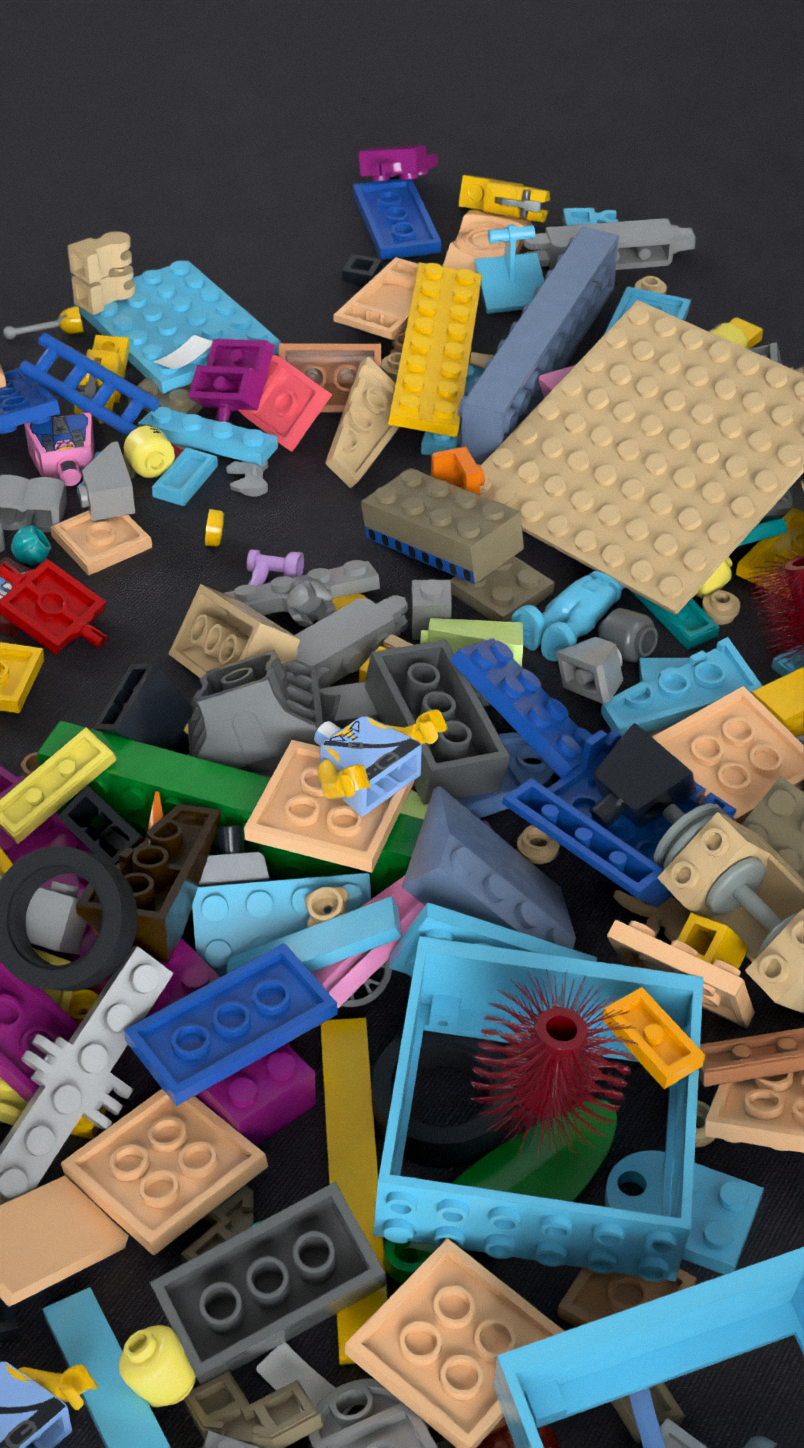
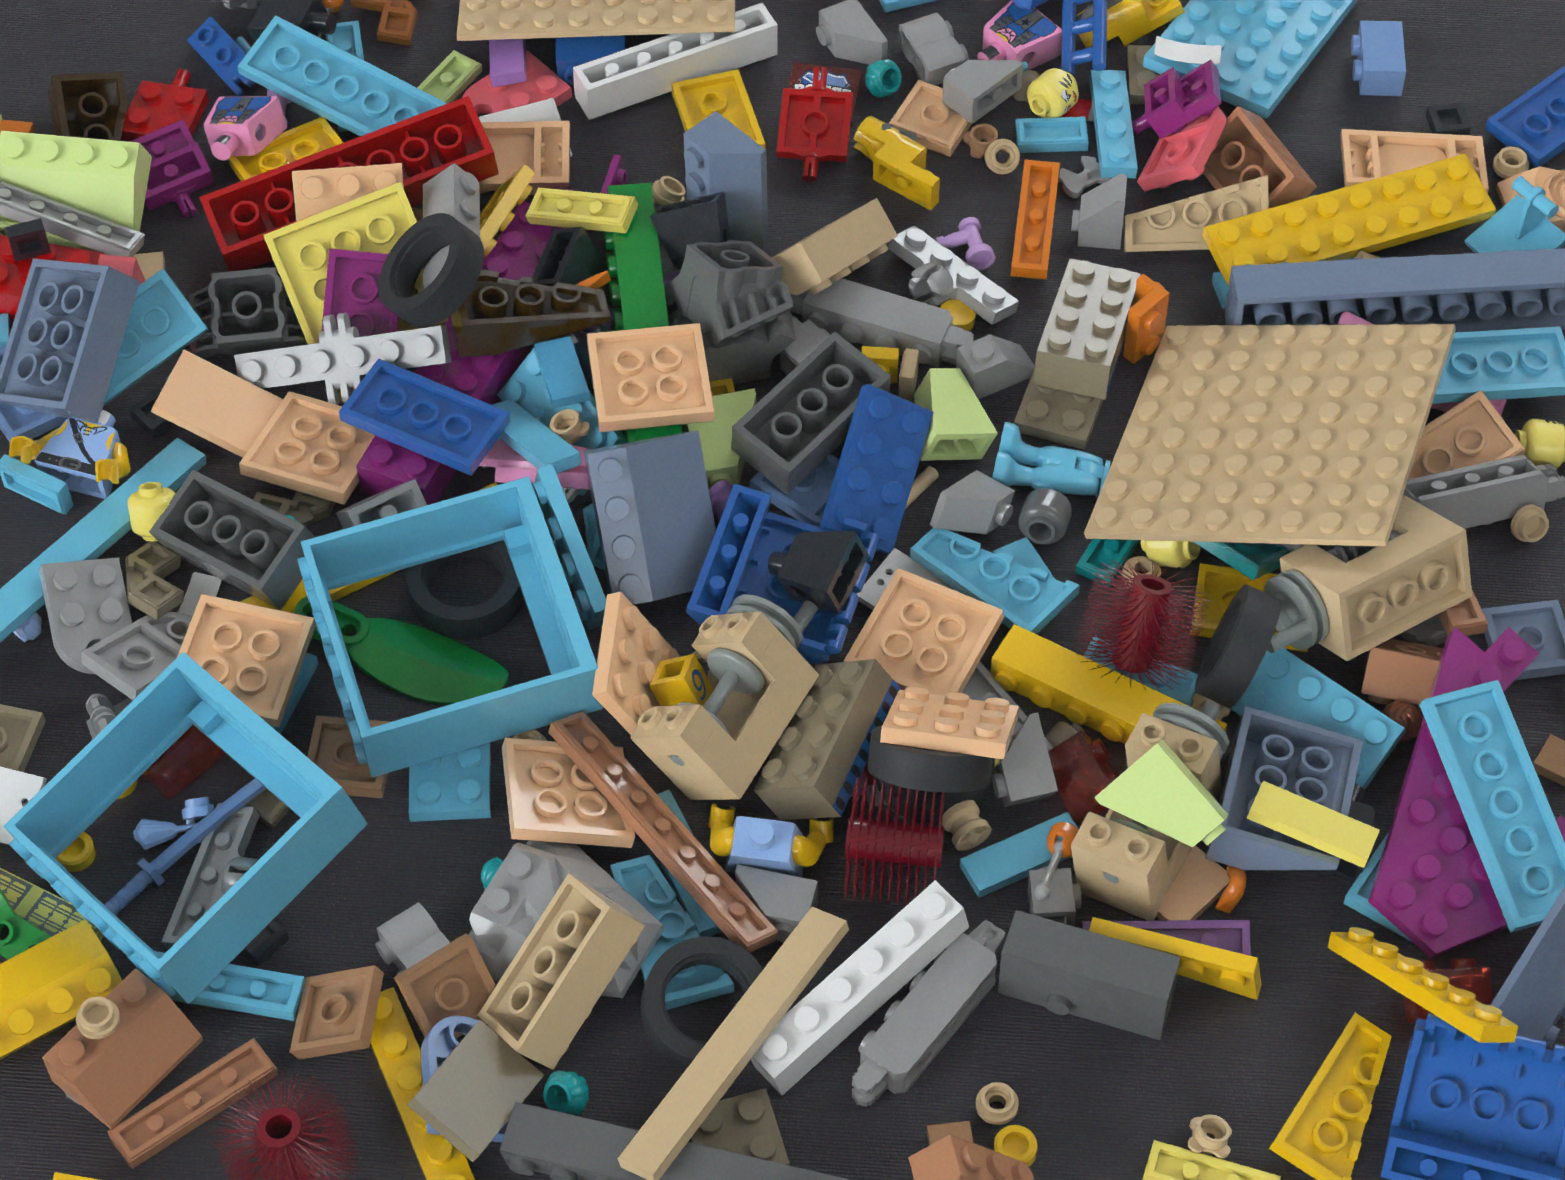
camera: 65 degrees right, 10 degrees up
(34, 739) = (668, 191): none -> tan plate
(107, 638) = (729, 161): none -> sand blue slope
(143, 573) = (898, 161): none -> yellow plate
(159, 515) = (980, 138): none -> medium nougat plate
(190, 509) = (1011, 151): none -> tan plate
(214, 528) = (988, 182): yellow tile -> none
(256, 881) = (561, 372): none -> dark azure tile
(269, 274) = (1380, 58): none -> medium blue brick
(279, 518) = (1035, 219): none -> orange plate
(312, 1133) = (384, 504): none -> light grey slope
(318, 467) = (1101, 215): none -> light grey slope
(372, 759) = (682, 372): torso -> none
(428, 254) = (1510, 162): none -> tan plate
(552, 1063) = (426, 587): dark red piece -> none
(661, 1043) = (510, 651): light orange plate -> none

